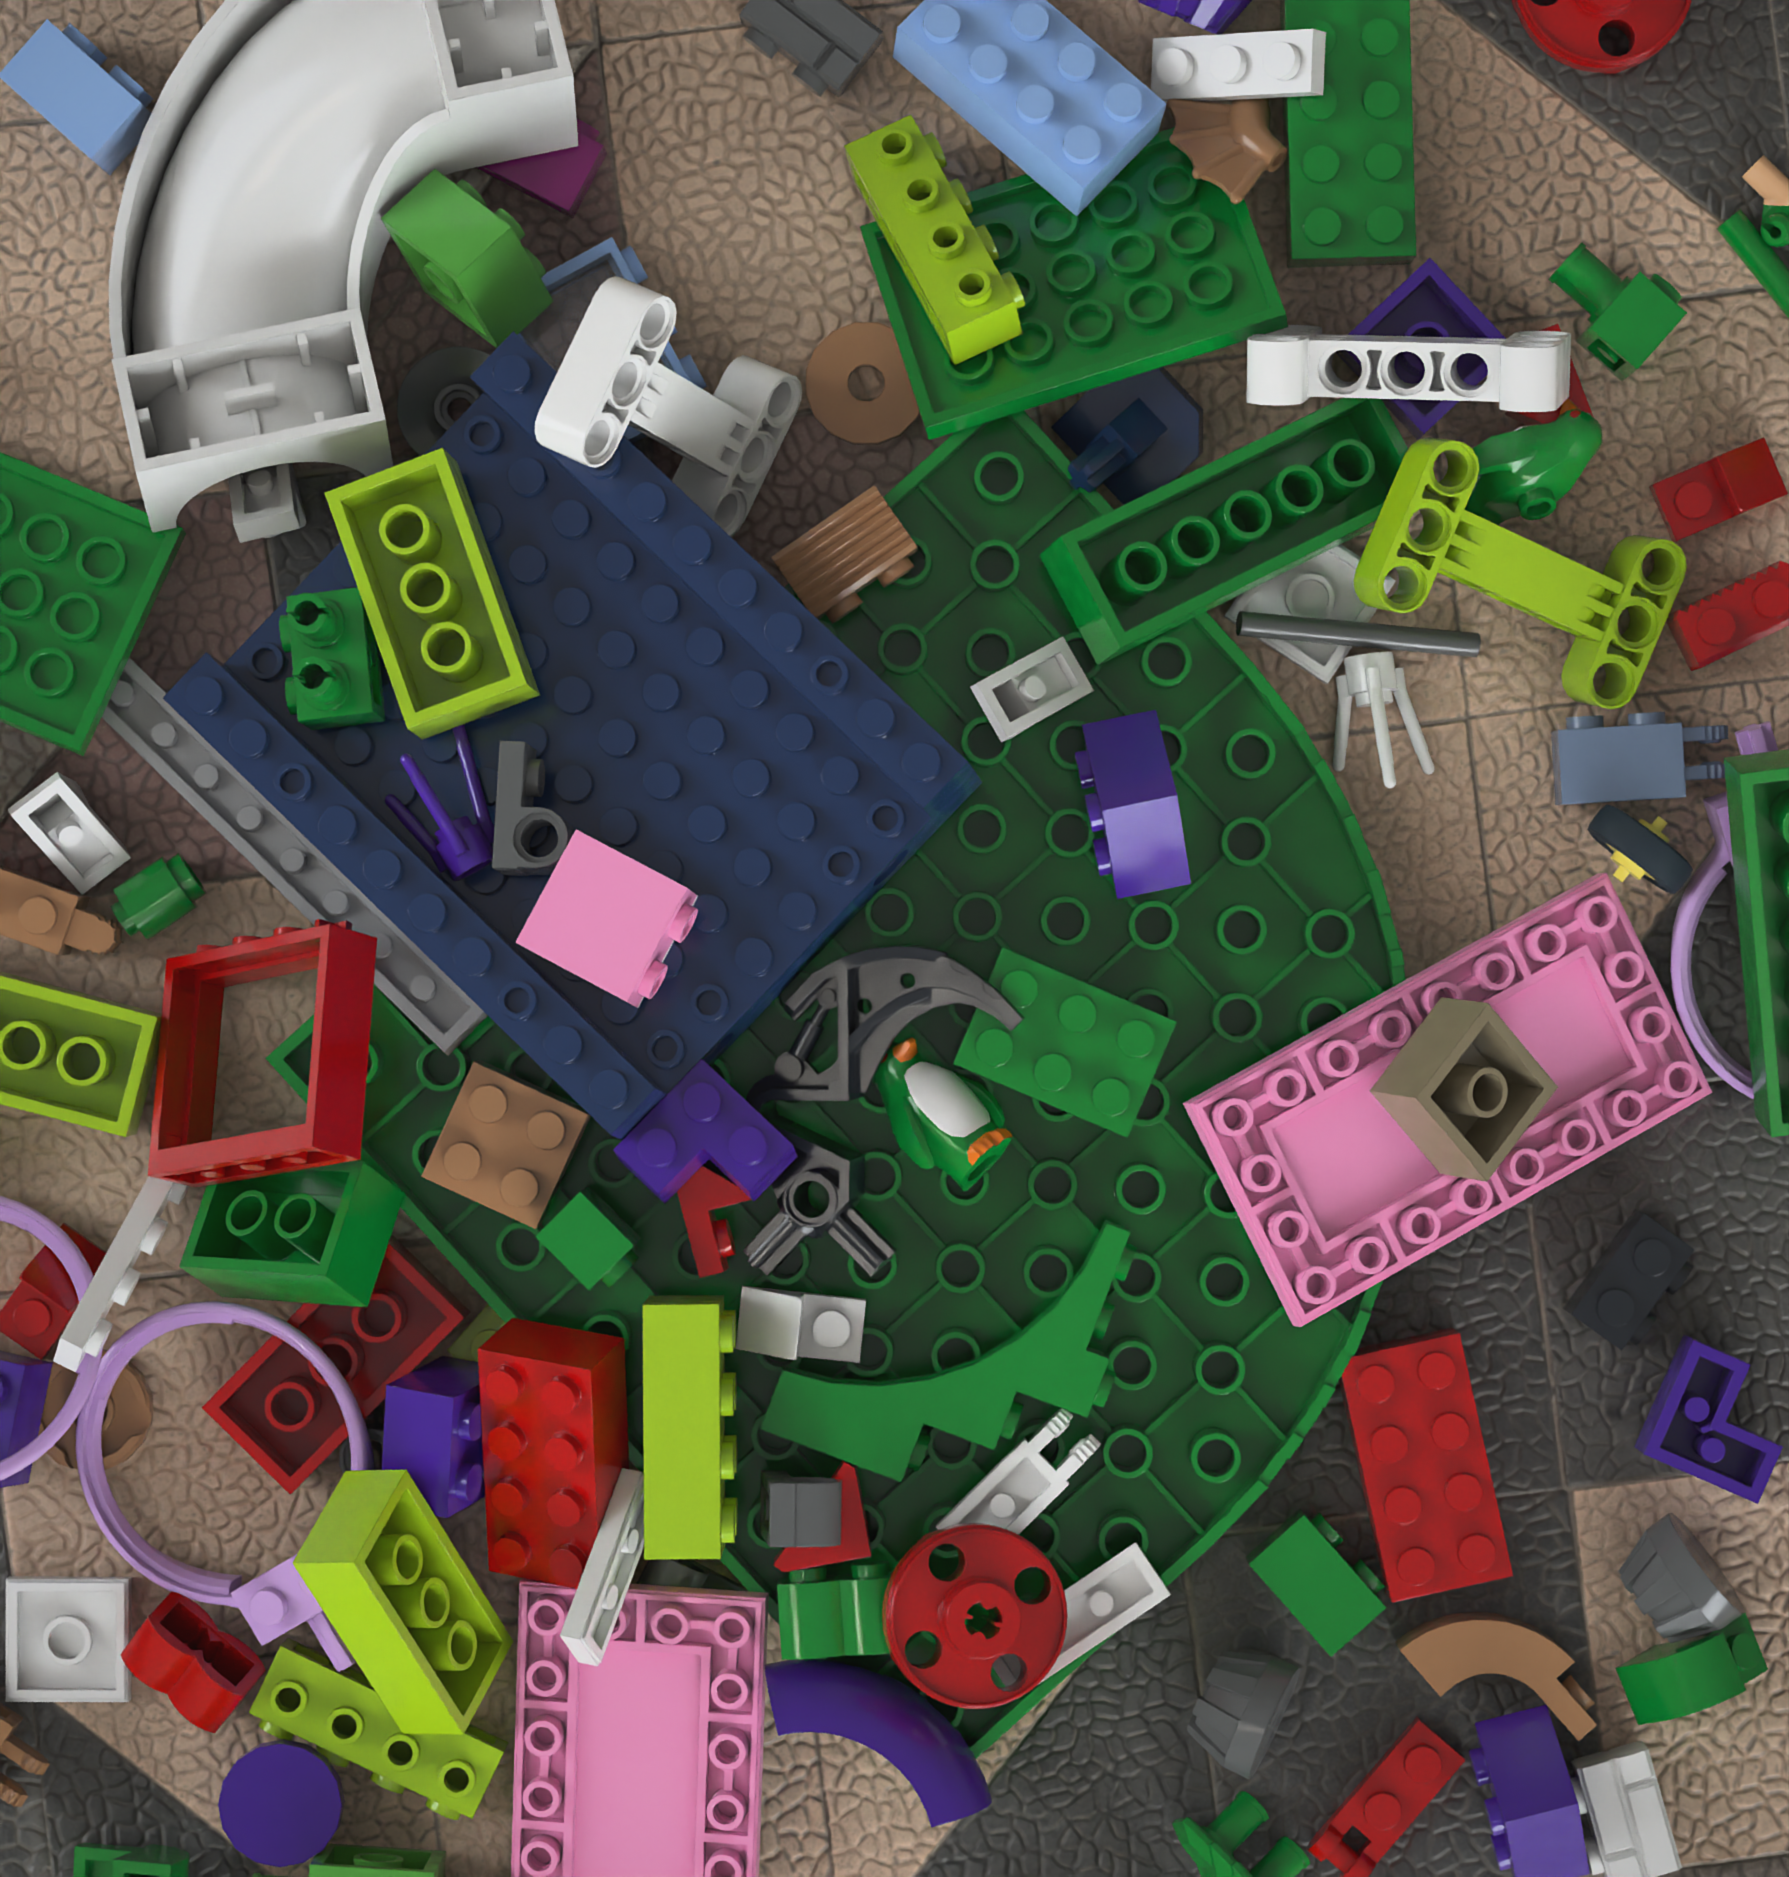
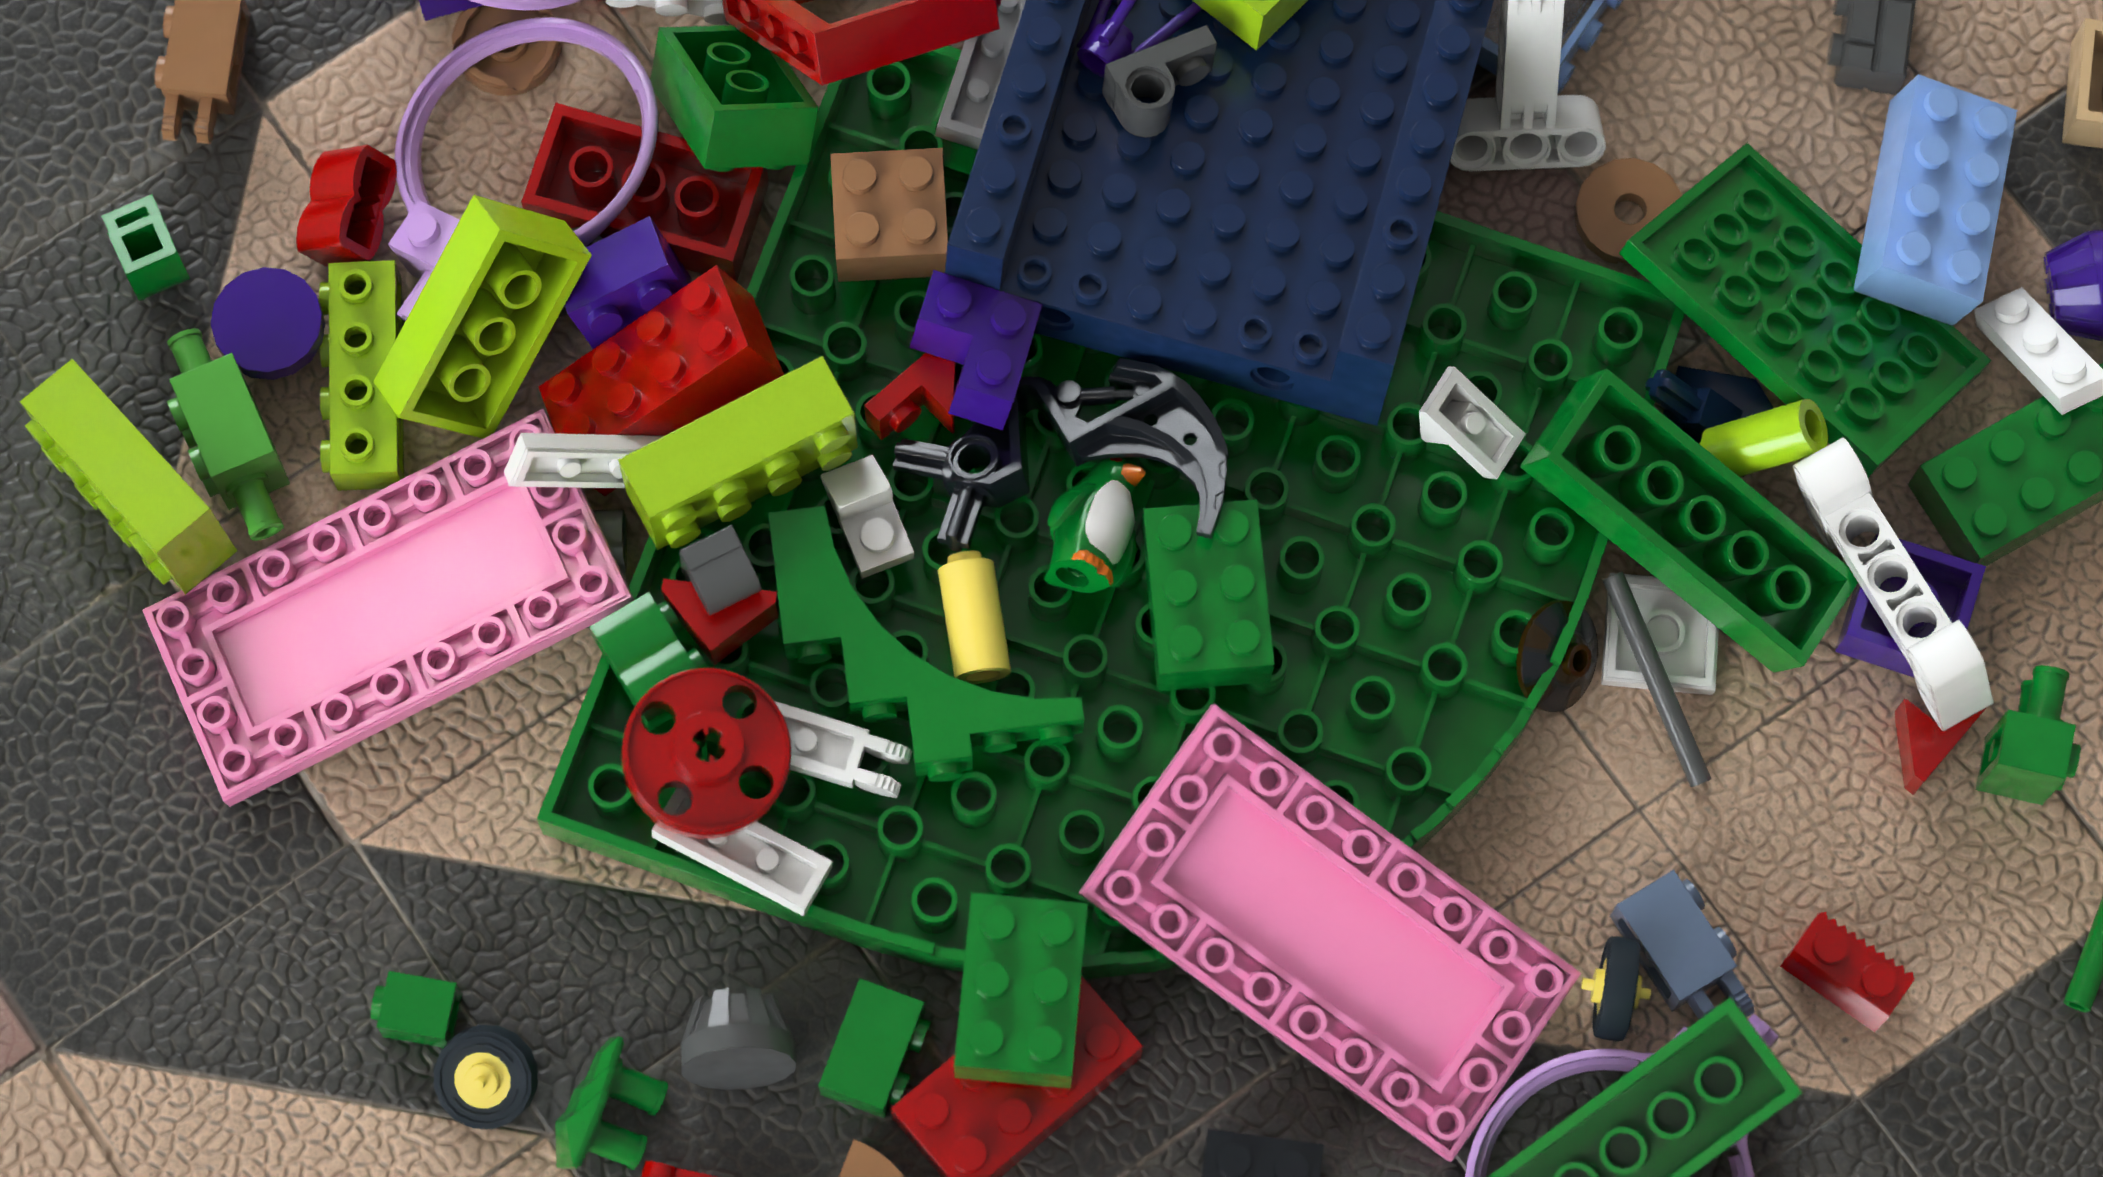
camera: 60 degrees right, 15 degrees down
(67, 1638) = (314, 110): white tile -> none
(591, 1240) = (850, 306): green brick -> none
(609, 919) = (1113, 172): bright pink piece -> none
(846, 555) = (1492, 237): medium nougat brick -> none
(889, 1720) = (582, 748): dark purple brick -> none
(934, 238) = (1772, 187): lime brick -> none
(964, 1278) = (974, 618): none -> light yellow brick
(1133, 804) = (1424, 548): dark purple brick -> none
(1196, 406) = (1768, 437): none -> lime brick
(1227, 142) = (1979, 374): medium nougat arm -> none
(1271, 734) = (1537, 649): none -> dish
(1357, 1430) = (1020, 990): none -> green brick
(1371, 681) = (1621, 713): white plant -> none
(1464, 1088) = (1347, 922): dark tan brick -> none
(1520, 573) = (1781, 771): lime beam -> none
(1533, 466) = (1863, 731): green animal -> none
(1718, 489) = (1941, 912): red slope -> none

